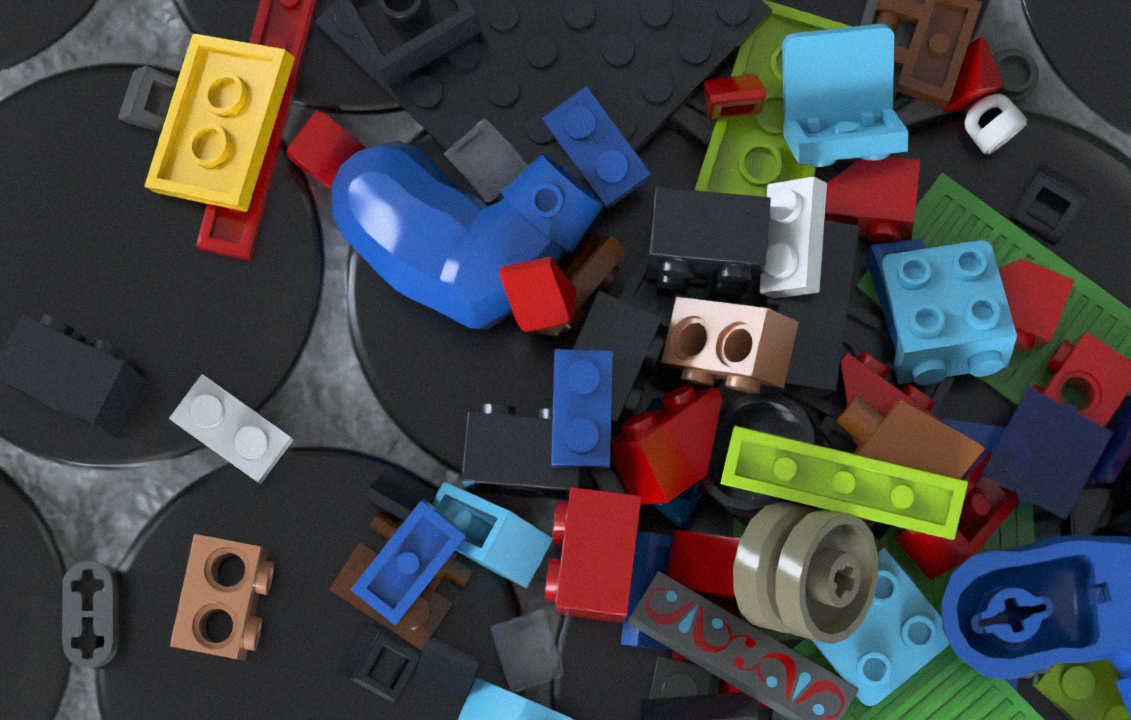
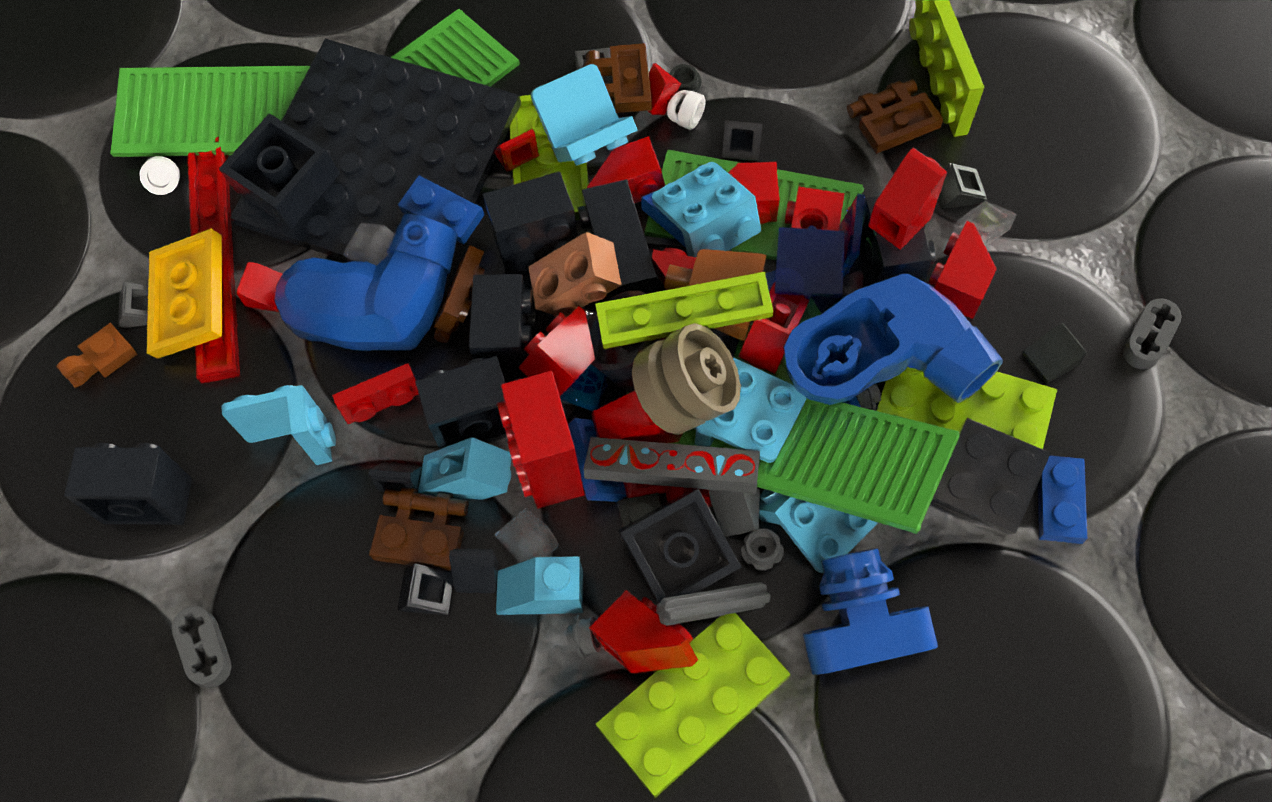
camera: 20 degrees left, 15 degrees down
(89, 153) = (101, 352): none -> dark orange plate
(206, 595) = (283, 595): nougat brick -> none
(231, 429) = (262, 482): white plate -> none
(316, 391) = (280, 414): none -> medium azure bracket
(393, 378) = (378, 393): none -> red plate
(409, 561) = (415, 503): blue plate -> none
(538, 294) = (432, 290): red slope -> none
(582, 409) = (491, 346): blue plate -> none
(794, 238) = (588, 196): white plate -> none

